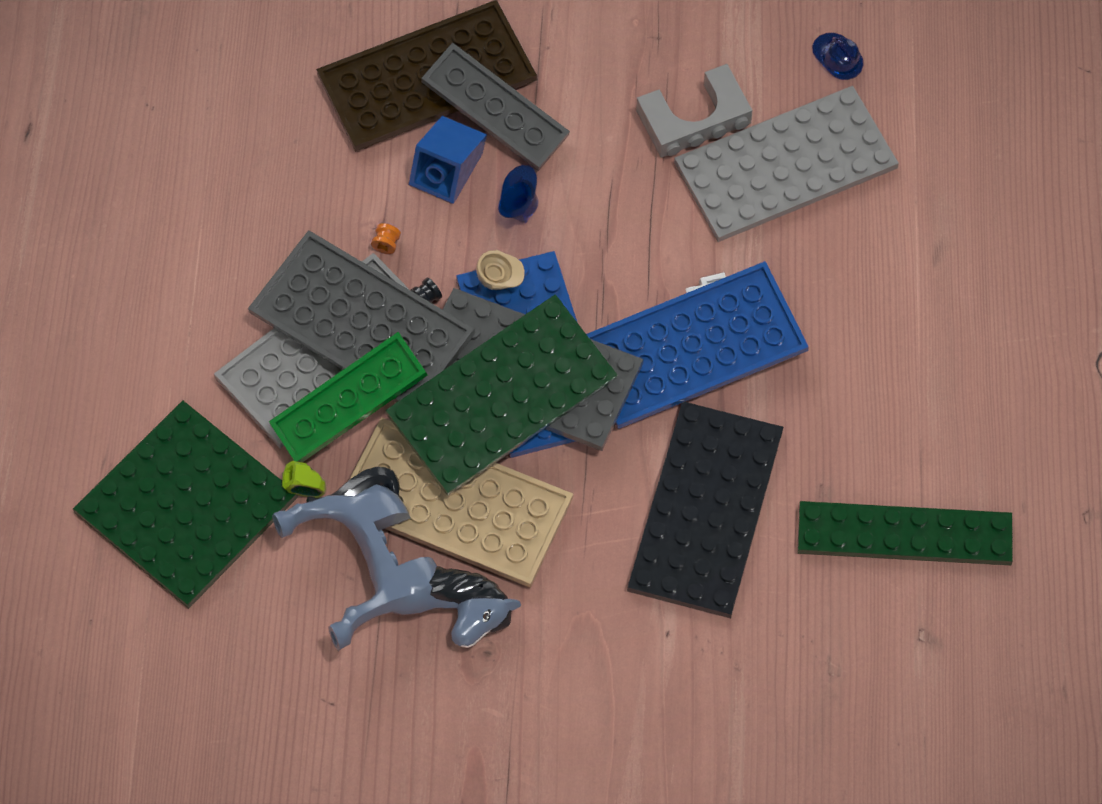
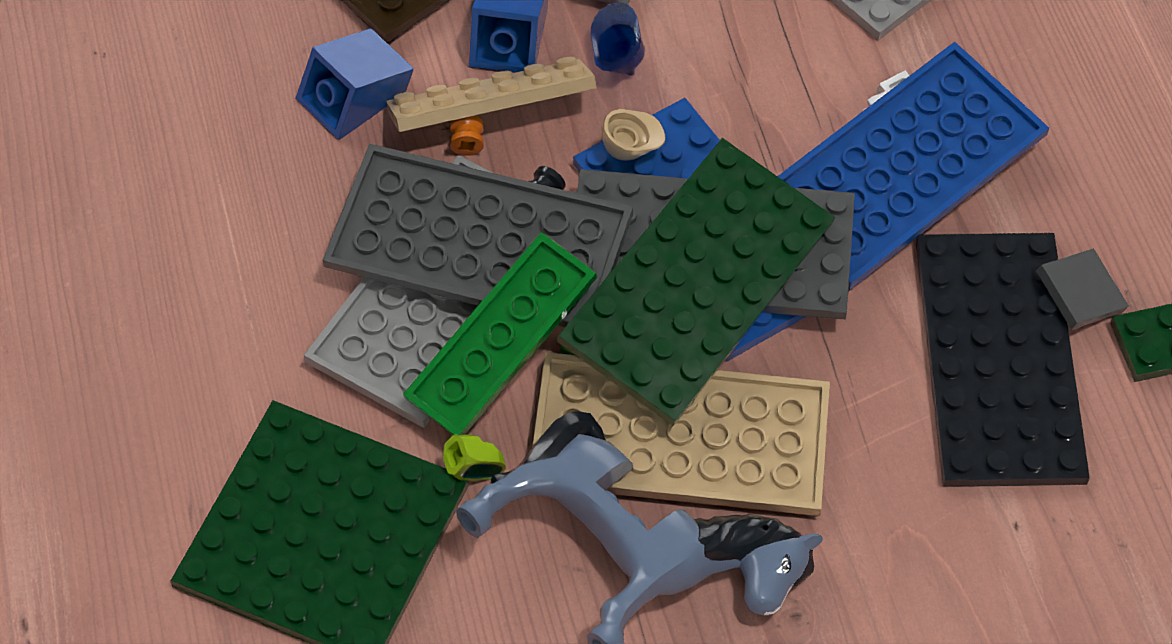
camera: 20 degrees left, 5 degrees down
(318, 175) = (352, 80): none -> blue slope
(412, 213) = (491, 94): none -> tan plate
(784, 474) = (1082, 288): none -> dark grey tile

